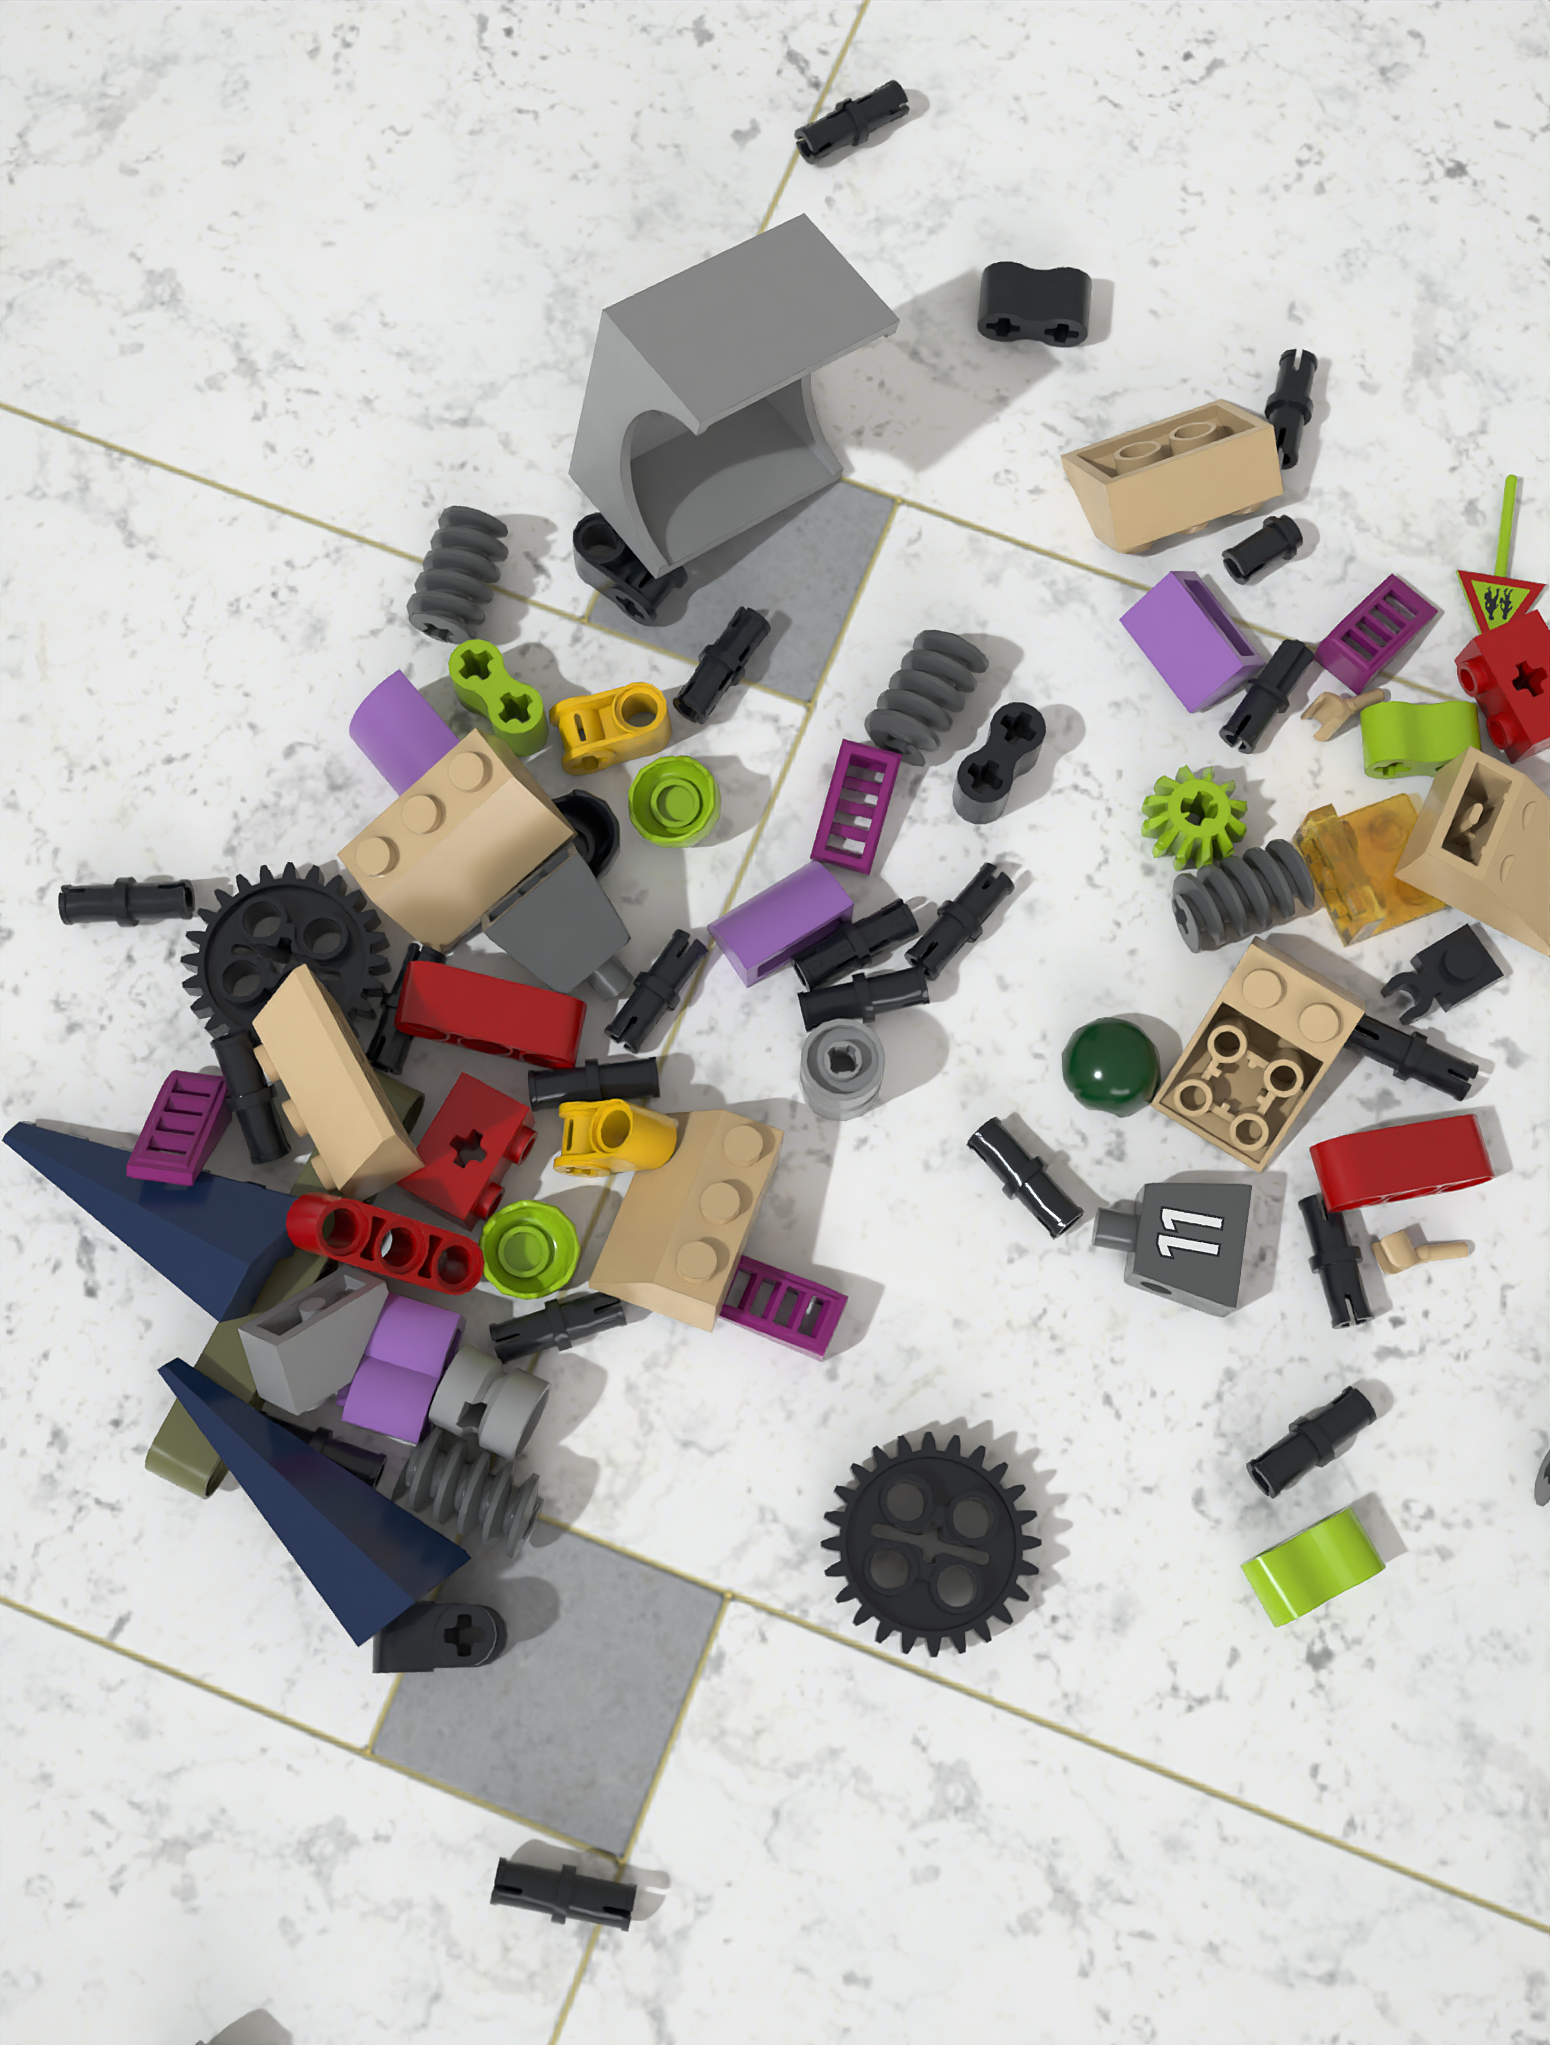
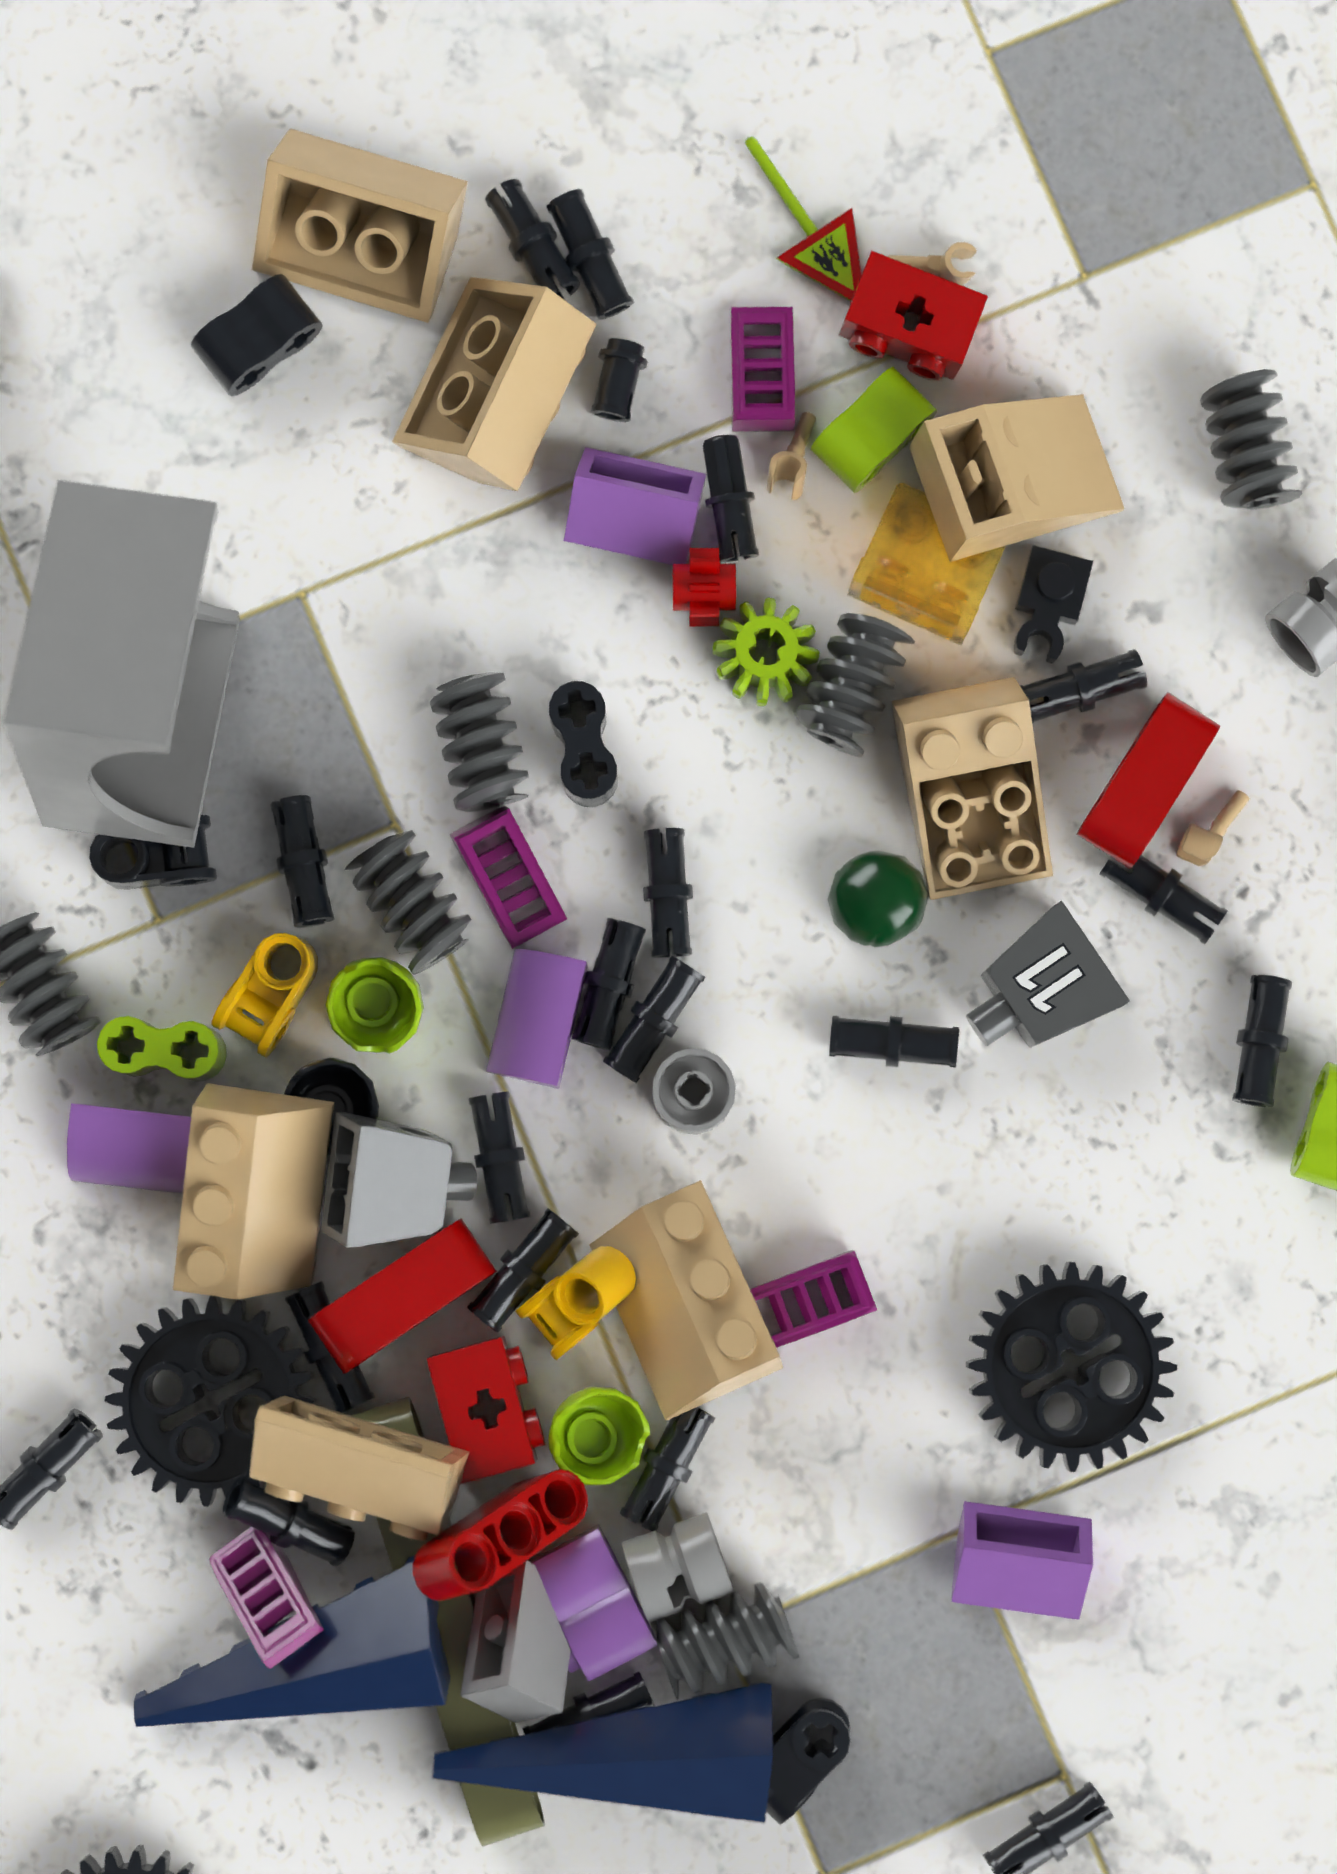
camera: 45 degrees left, 10 degrees up
(750, 1657) = (1022, 1560): none -> medium lavender brick
(765, 756) = (409, 901): none -> dark grey piece
(1176, 294) = (357, 224): none -> tan slope
(1191, 733) = (704, 587): none -> red gear
(1322, 451) = (589, 254): none -> black pin

